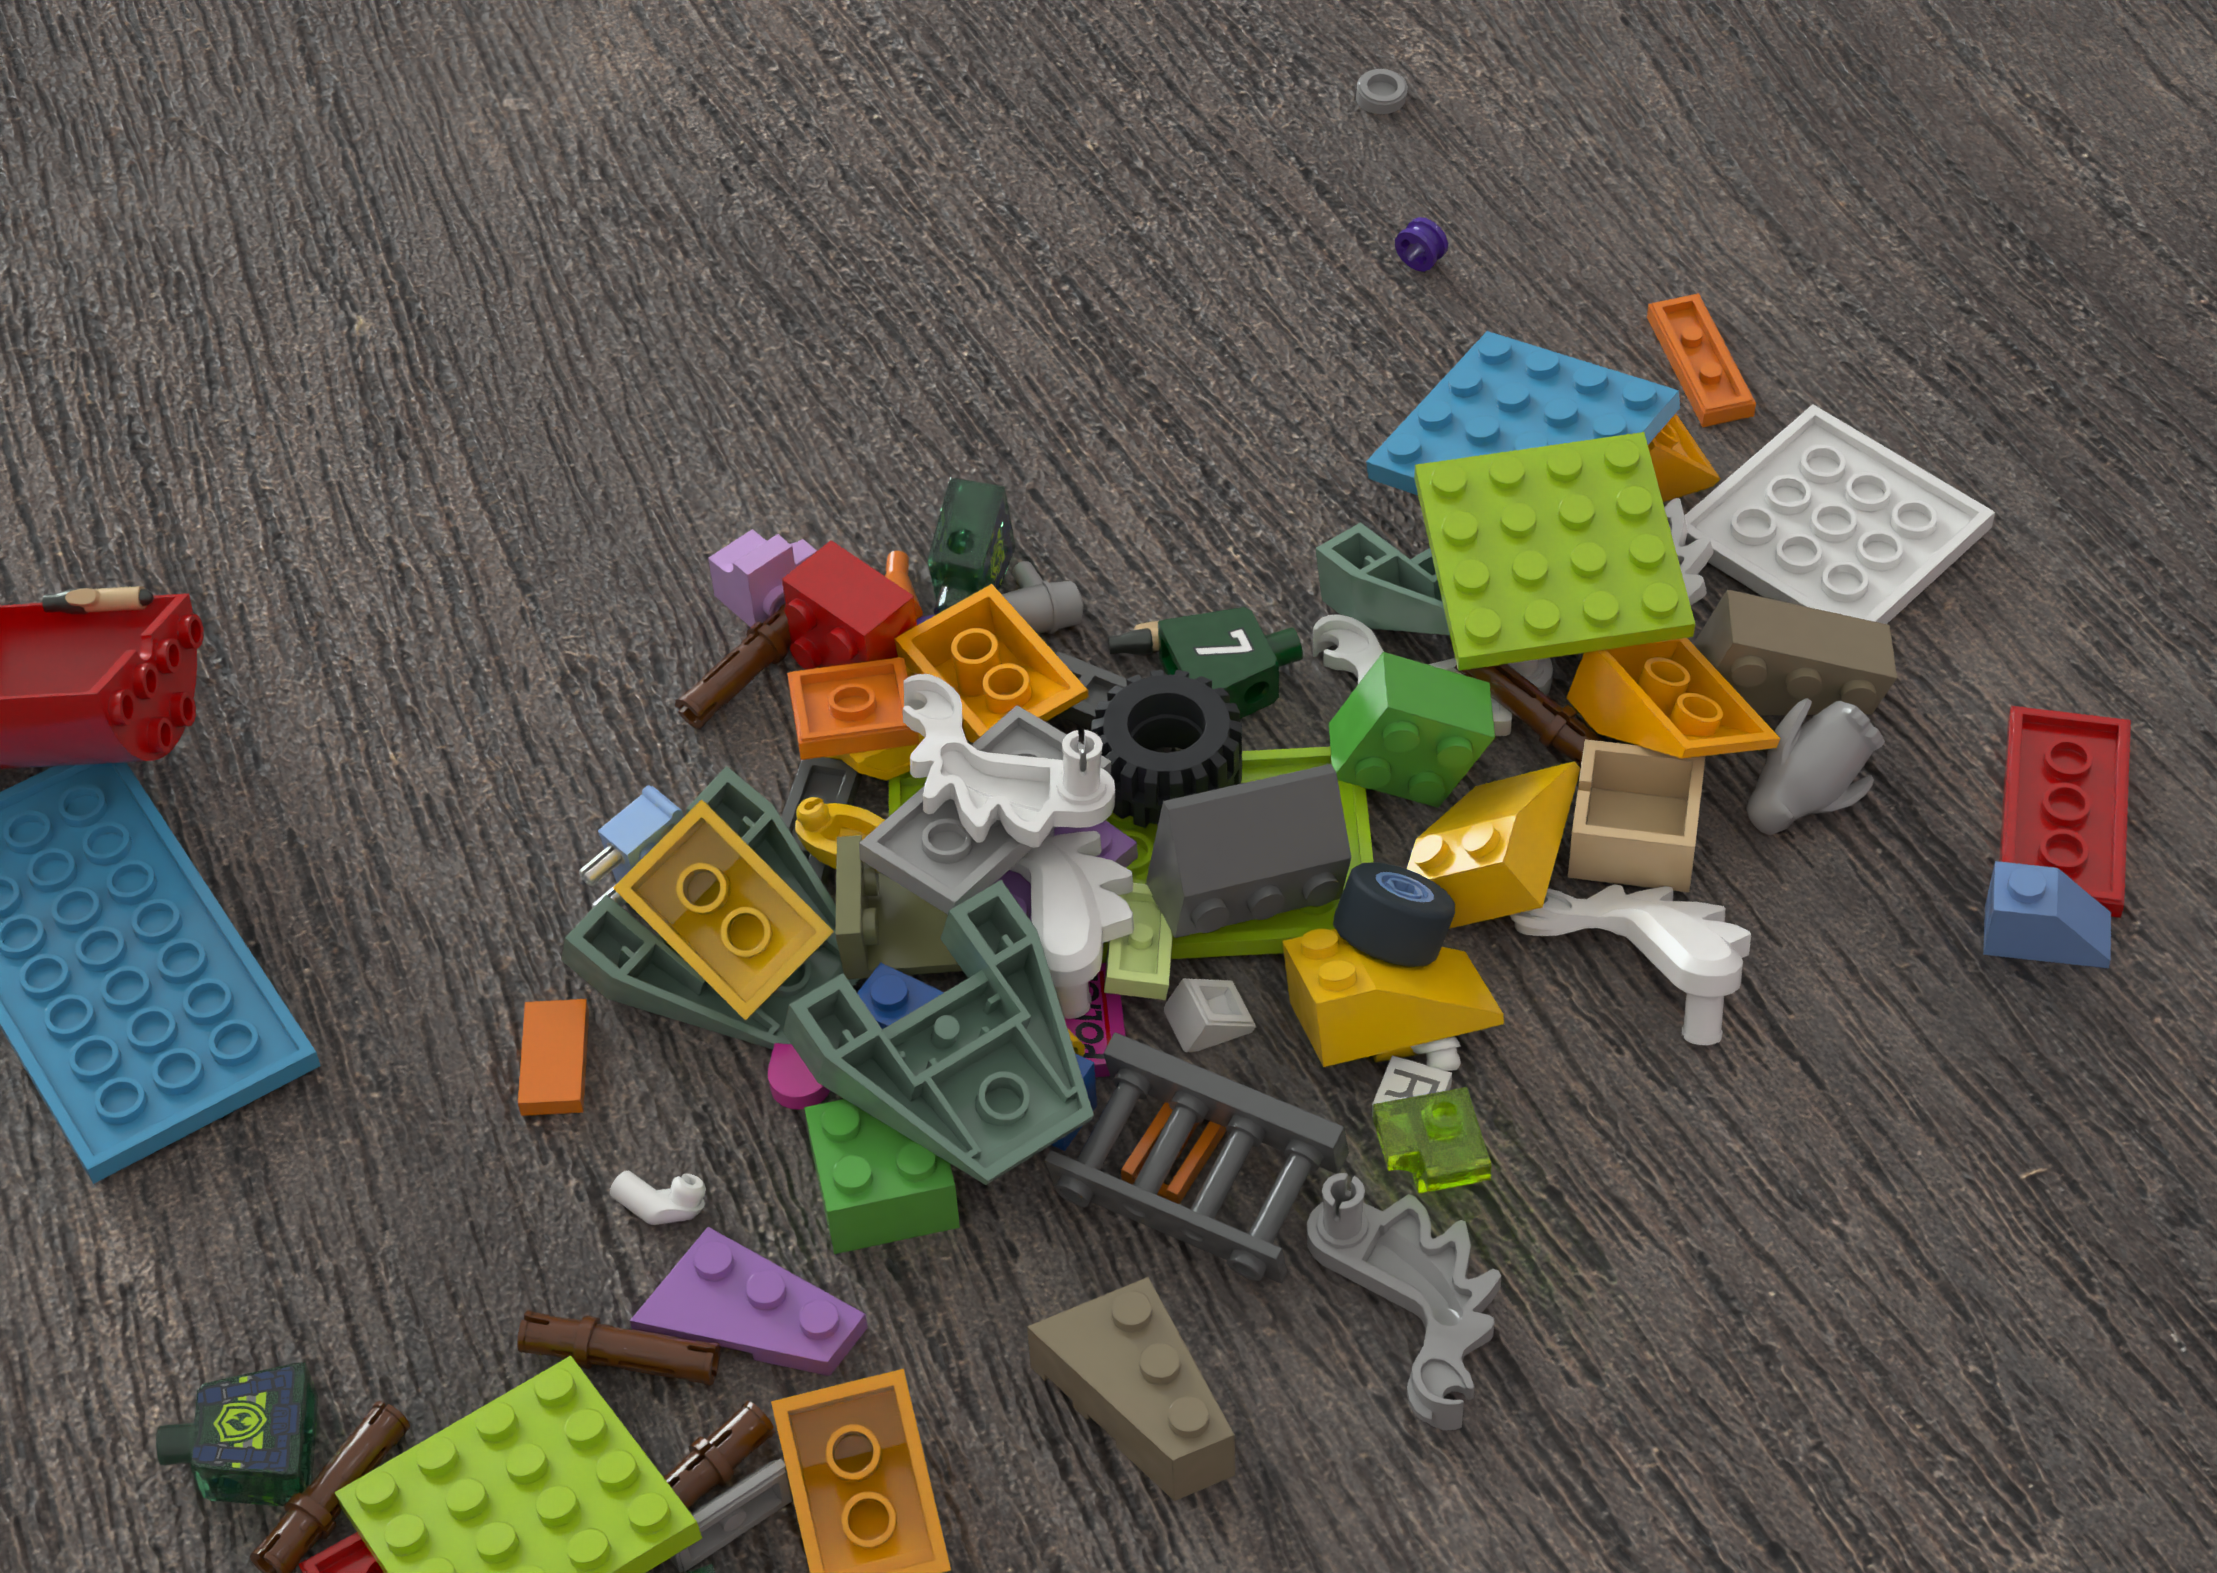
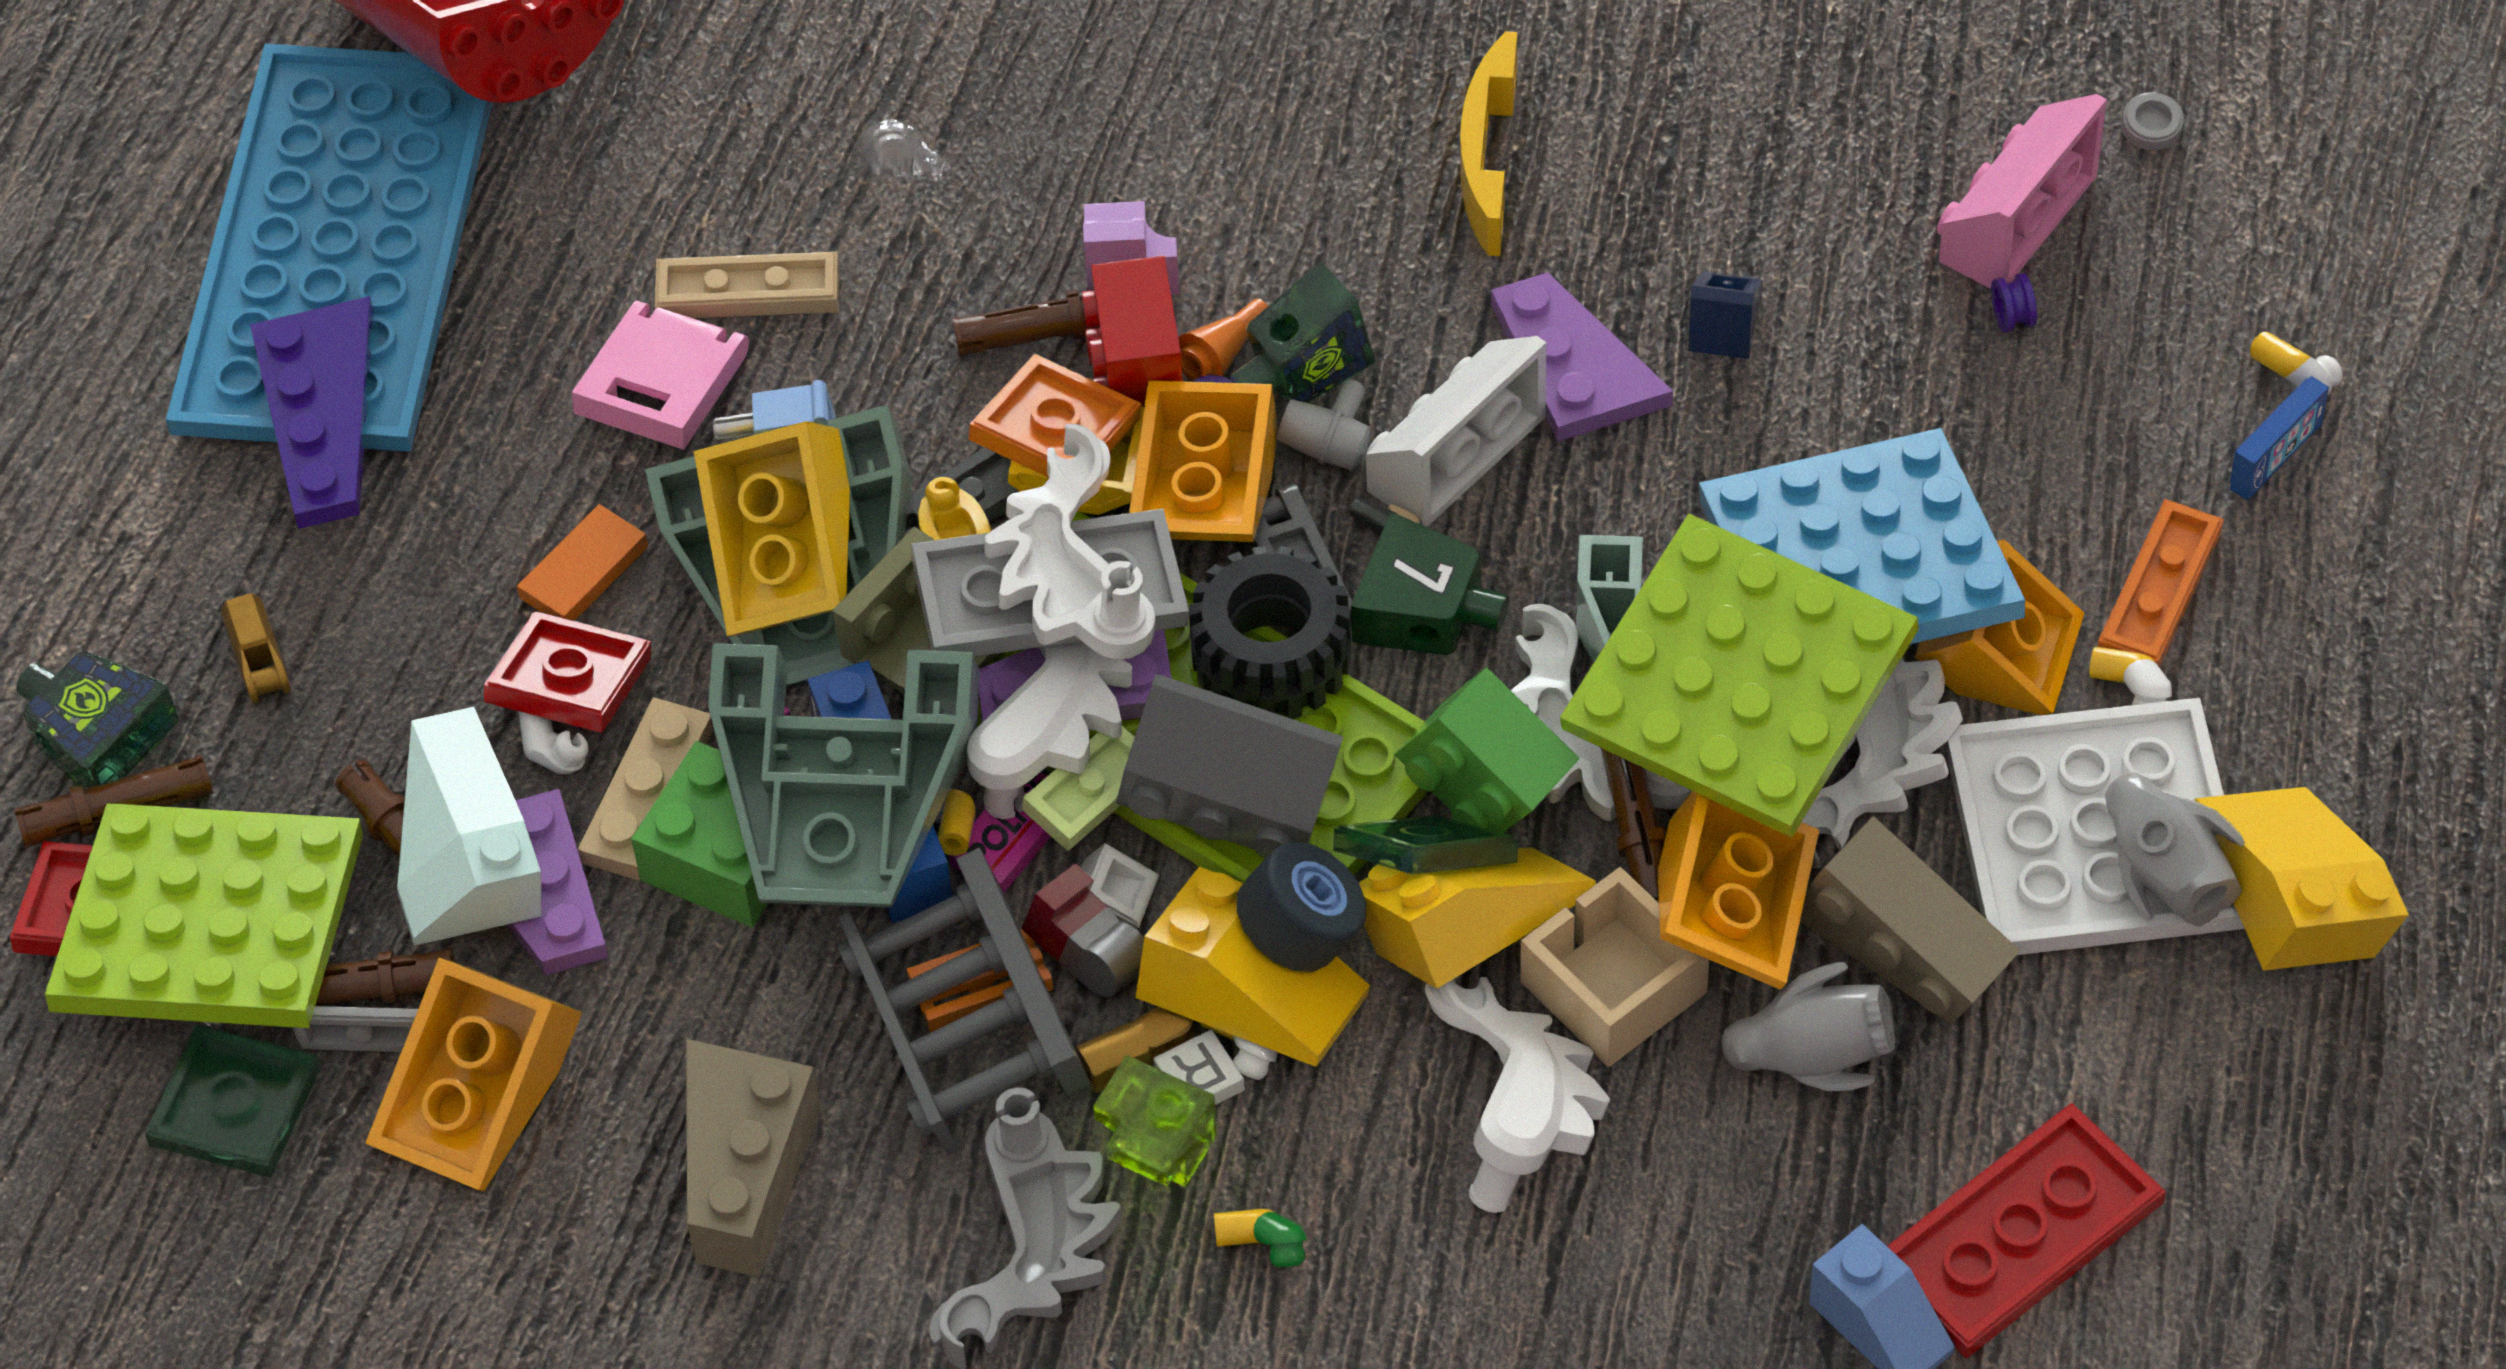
camera: 40 degrees right, 5 degrees up
(216, 1071) = (317, 401): none -> dark purple wing
(335, 1291) = (254, 646): none -> pearl gold bar
(475, 866) = (665, 359): none -> bright pink container
(479, 780) = (748, 284): none -> tan tile
(508, 615) = (899, 150): none -> clear animal
(627, 1137) = (567, 671): none -> red tile
(684, 1305) = (463, 836): none -> light aqua wedge
(774, 1182) = (646, 768): none -> tan plate
(984, 389) = (1488, 94): none -> yellow slope
(1135, 538) = (1460, 428): none -> white slope
(1157, 459) = (1588, 369): none -> medium lavender wing
(1237, 364) = (1723, 314): none -> dark blue slope
(1247, 1052) = (1084, 933): none -> leg
(1353, 1097) = (1141, 1039): none -> pearl gold bar
(1357, 168) = (2024, 191): none -> bright pink slope
(1428, 818) = (1425, 844): none -> clear green tile
(1577, 1163) = (1264, 1227): none -> arm
(1647, 177) = (2293, 363): none -> arm
(1680, 223) = (2278, 437): none -> blue tile
(1746, 417) = (2135, 669): none -> arm
(1917, 495) = (2171, 850): none -> light grey animal
(2004, 468) = (2306, 880): none -> yellow slope

